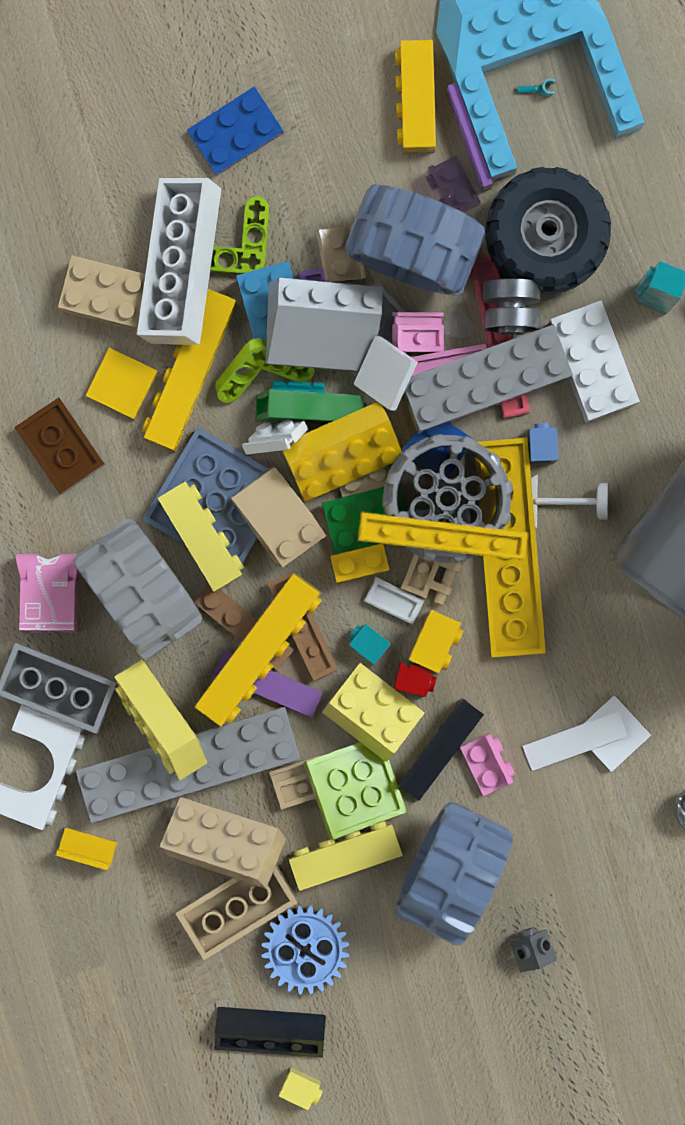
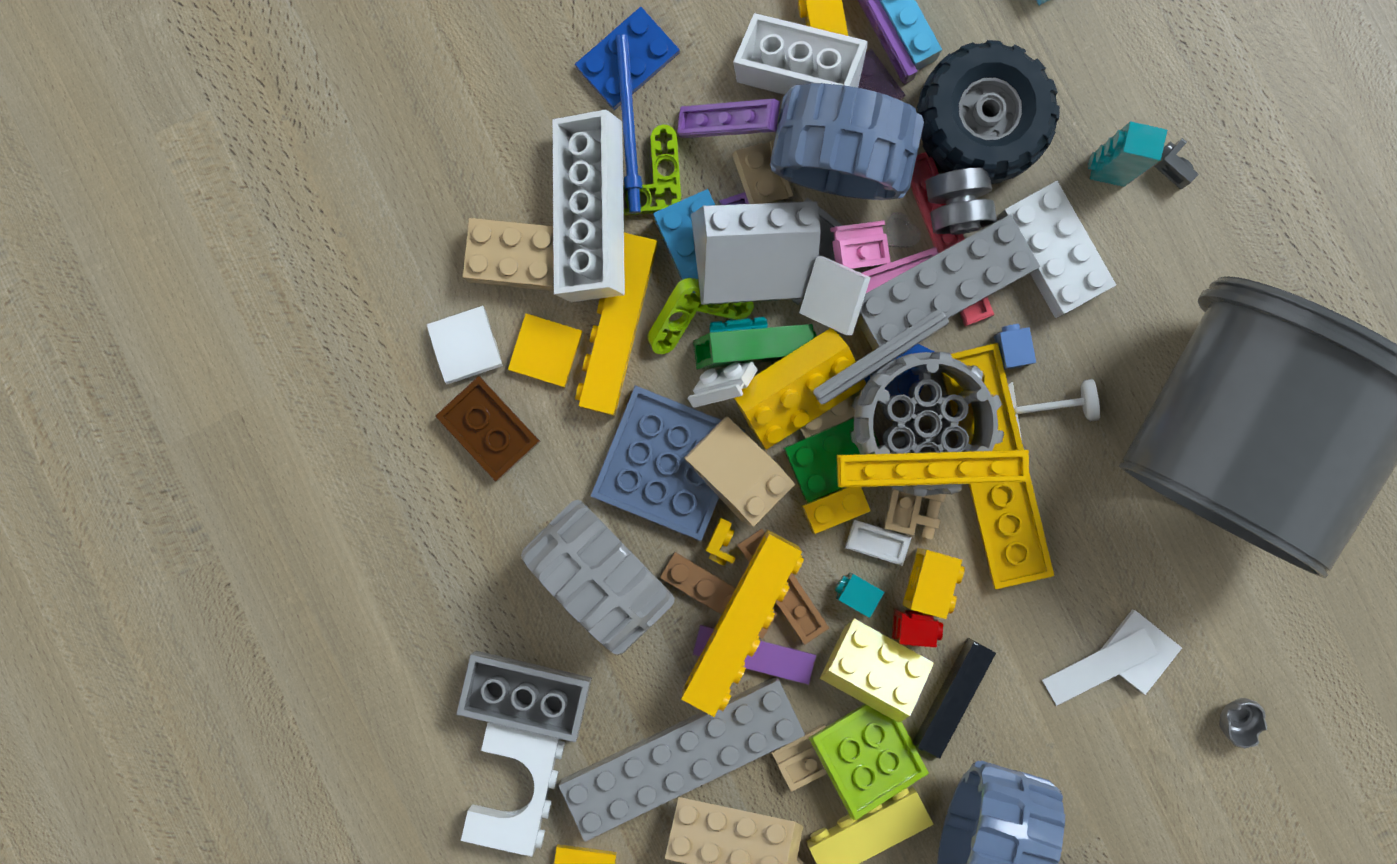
camera: 10 degrees left, 0 degrees up
(48, 593) = (499, 592): bright pink piece -> none
(50, 368) = (464, 345): none -> white slope
(159, 721) = (644, 719): light yellow brick -> none
(200, 536) = (657, 505): light yellow brick -> none
(222, 243) = (632, 180): none -> blue bar
(253, 573) = (721, 536): none -> yellow bracket
(315, 201) = (728, 118): none -> medium lavender tile
(387, 156) = (789, 54): none -> white slope
(416, 433) = (881, 356): none -> light grey axle
(487, 764) = (1007, 706): bright pink bracket -> none

